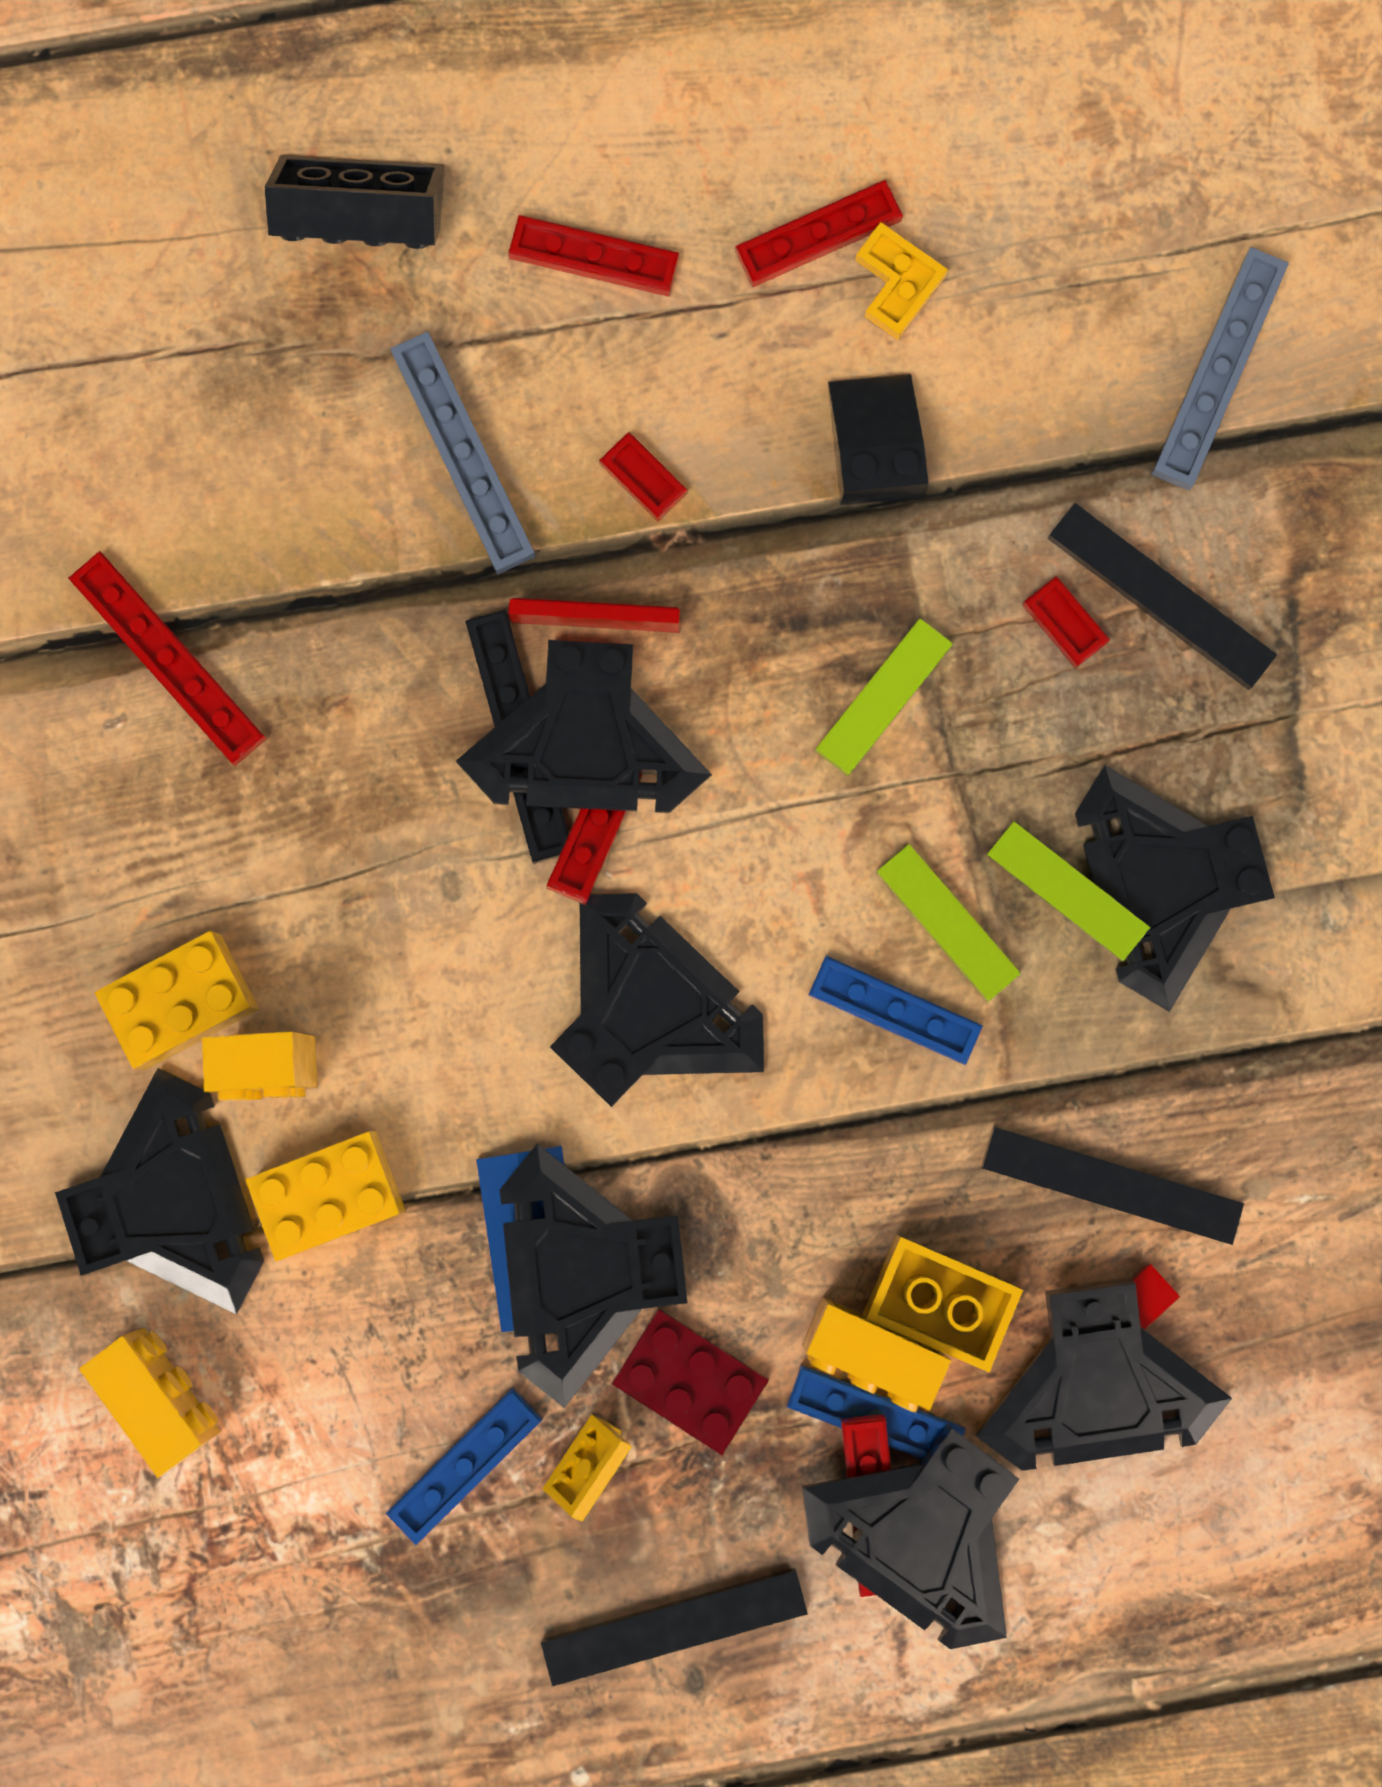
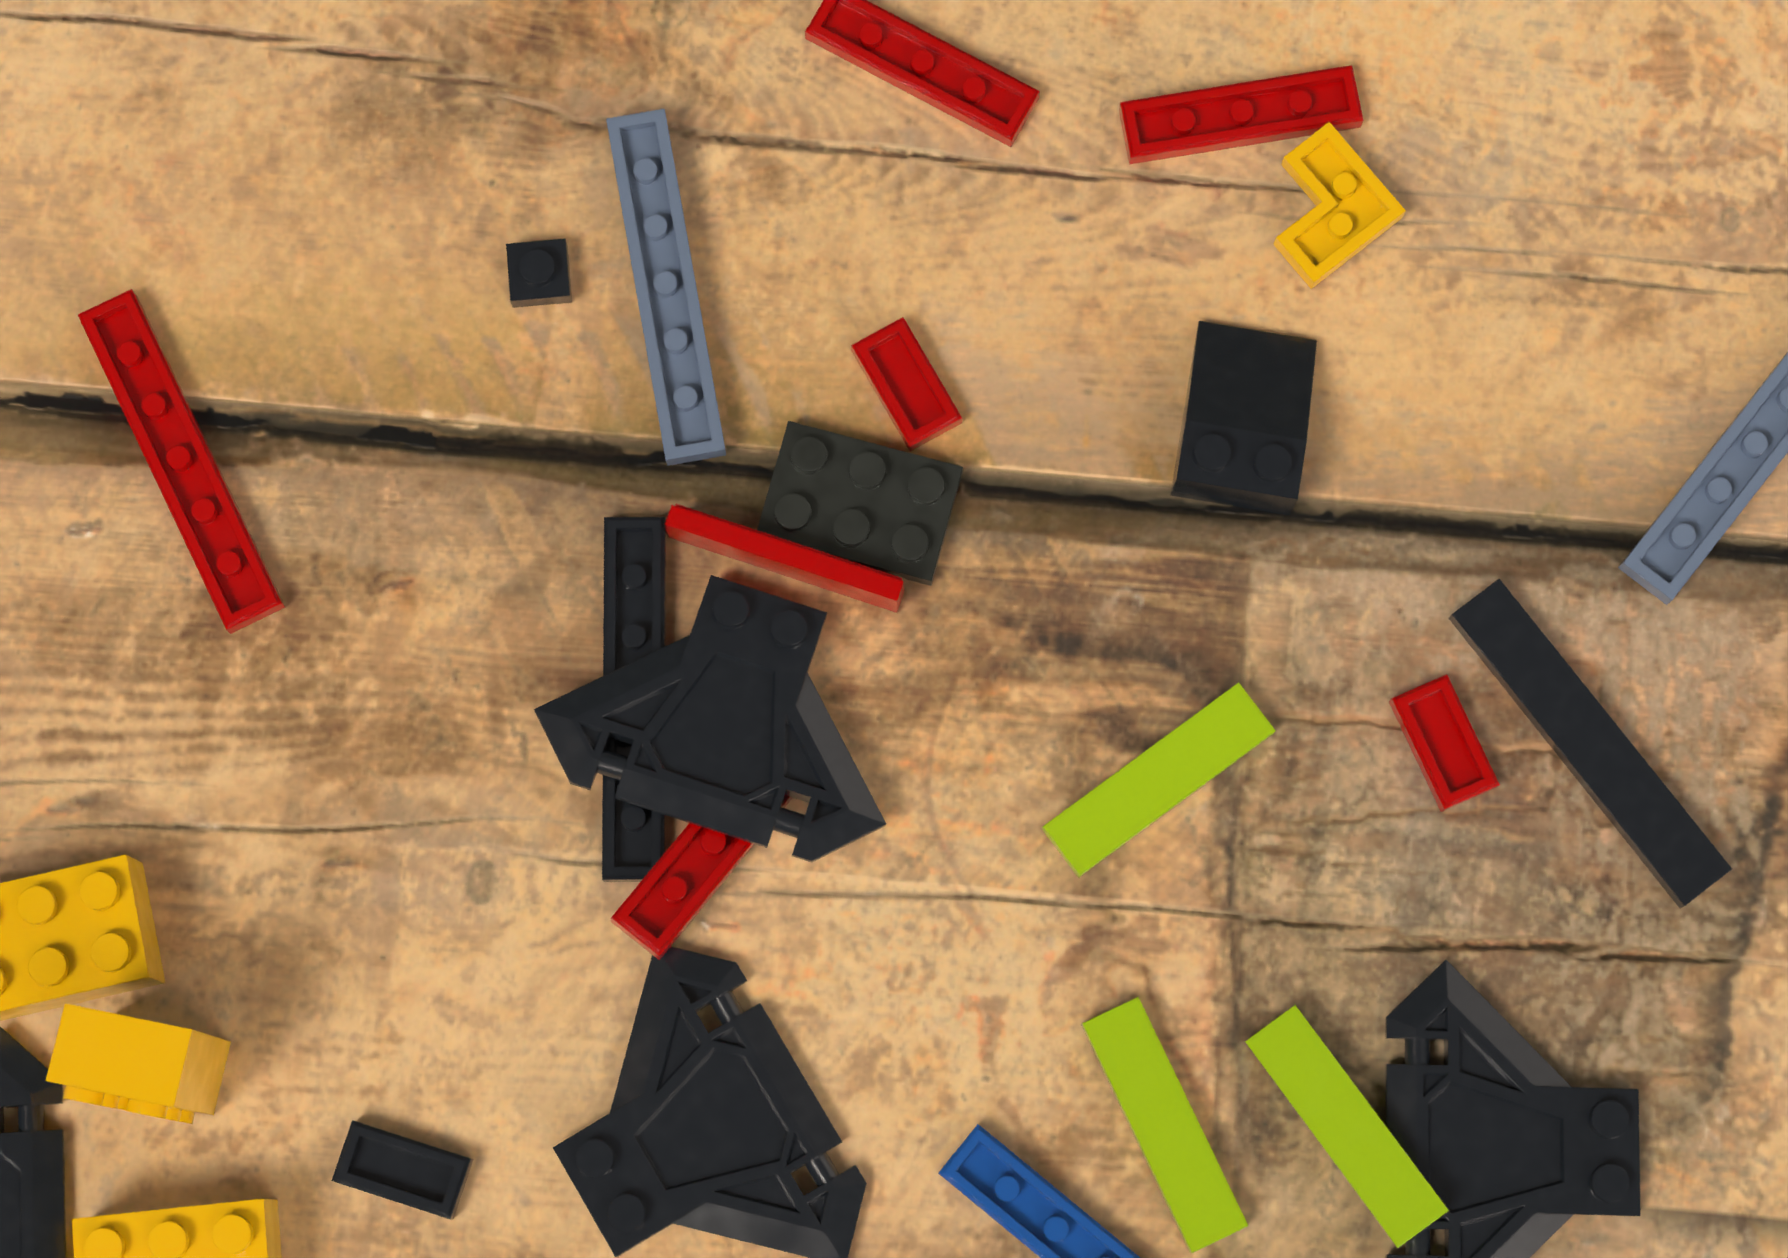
camera: 15 degrees right, 5 degrees down
(373, 466) = (539, 273): none -> black plate
(453, 1088) = (402, 1170): none -> black tile
(635, 563) = (861, 501): none -> pearl dark grey plate

